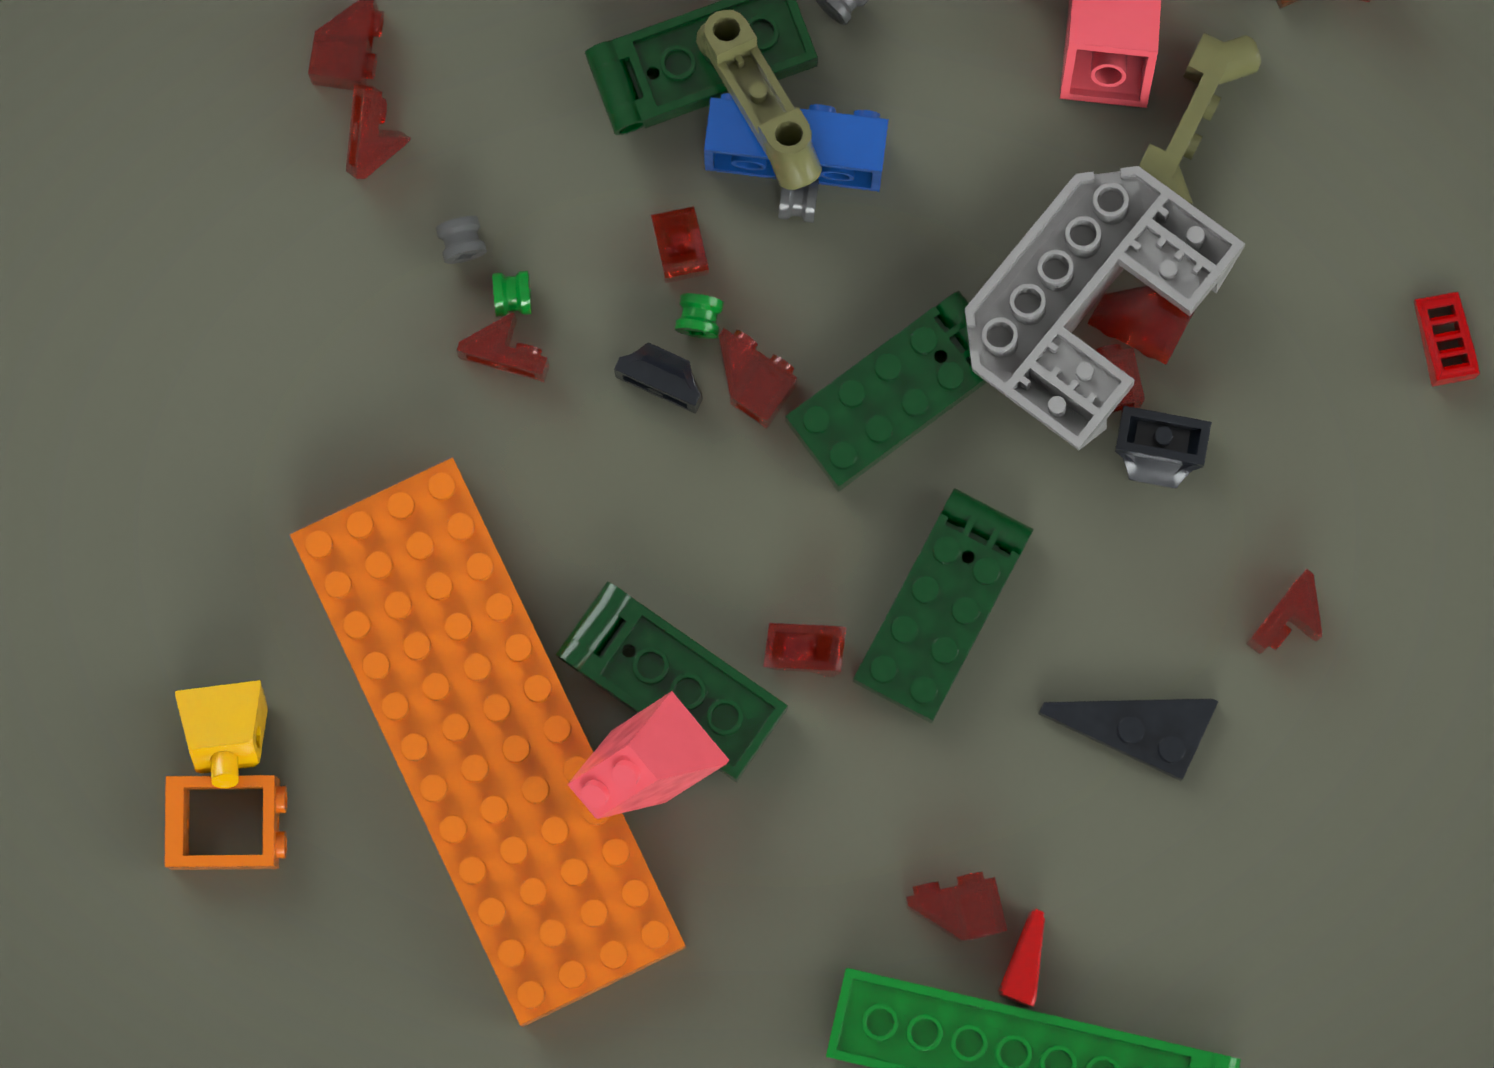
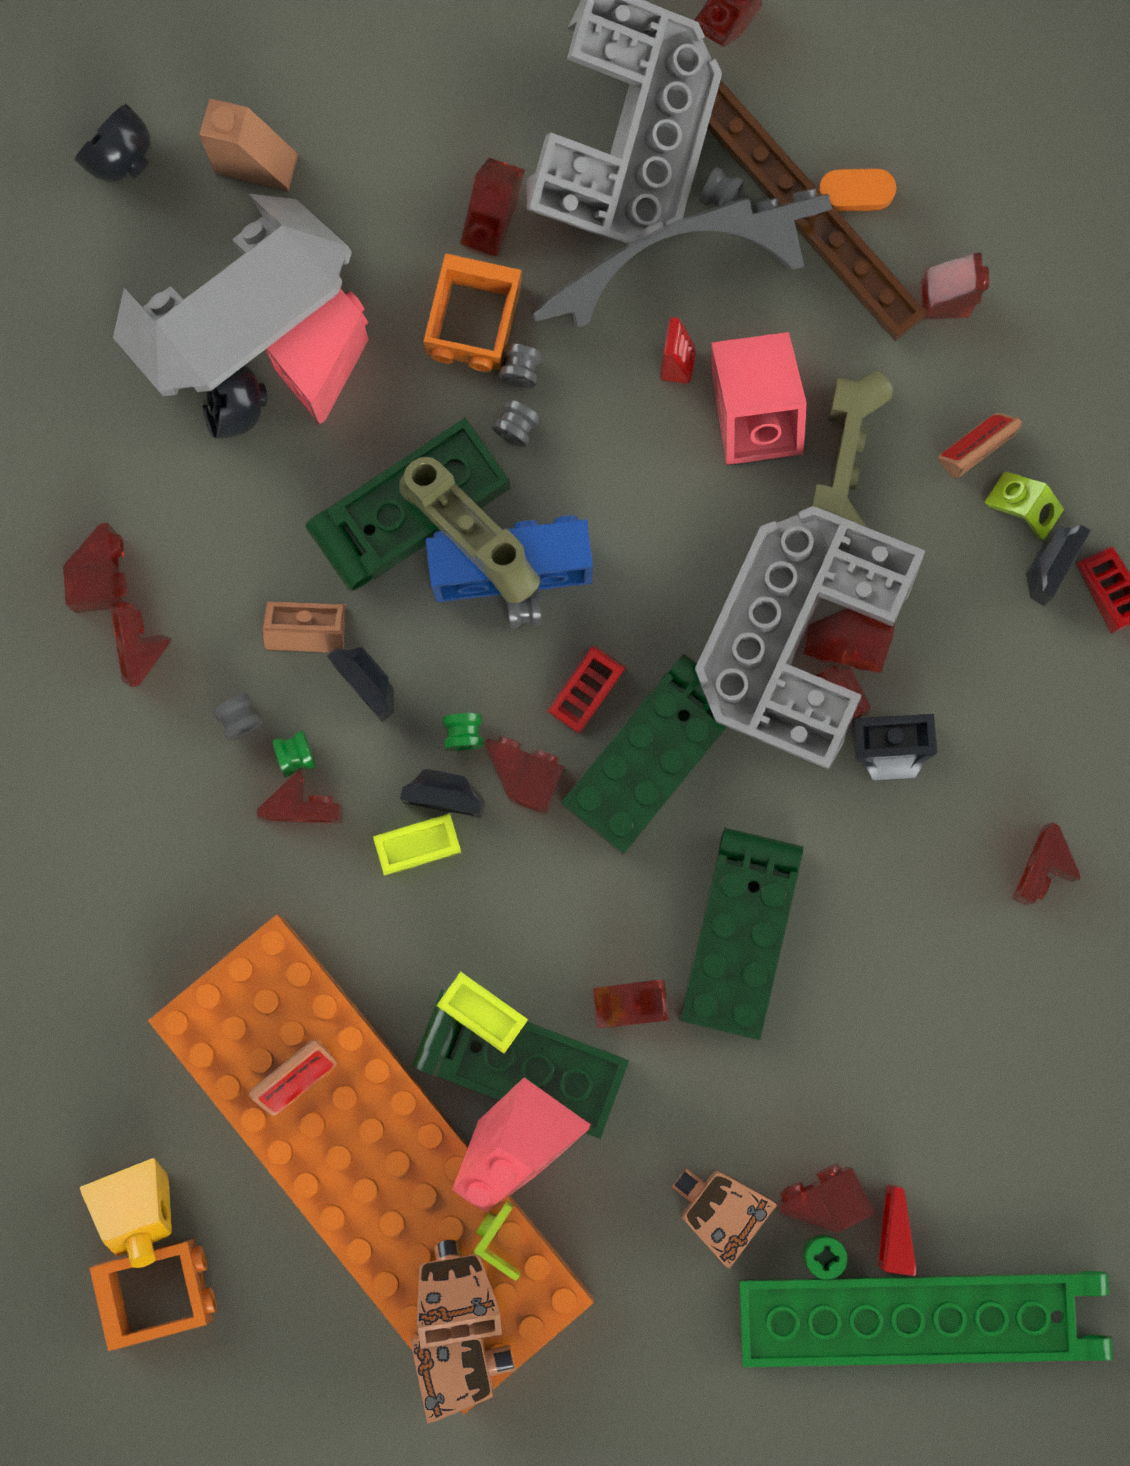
camera: 15 degrees left, 0 degrees up
(429, 629) = (293, 1077): none -> slope
(525, 972) = (458, 1374): none -> torso
(543, 896) = (455, 1299): none -> nougat torso
(556, 161) = (304, 626): none -> nougat slope
(594, 838) = (487, 1231): none -> lime bracket
(608, 232) = (366, 679): none -> black slope
(619, 424) = (417, 844): none -> neon yellow tile
(644, 614) = (482, 1012): none -> neon yellow tile
(680, 244) = (430, 673): clear red slope -> none
(846, 890) = (722, 1212): none -> torso
(874, 279) = (604, 659): none -> red slope
(937, 971) = (817, 1248): none -> green wheel
(1150, 731) = (952, 998): black wing -> none
(1341, 144) = (979, 443): none -> slope
(1374, 217) = (1025, 499): none -> lime bracket
(1389, 290) = (1054, 562): none -> black slope

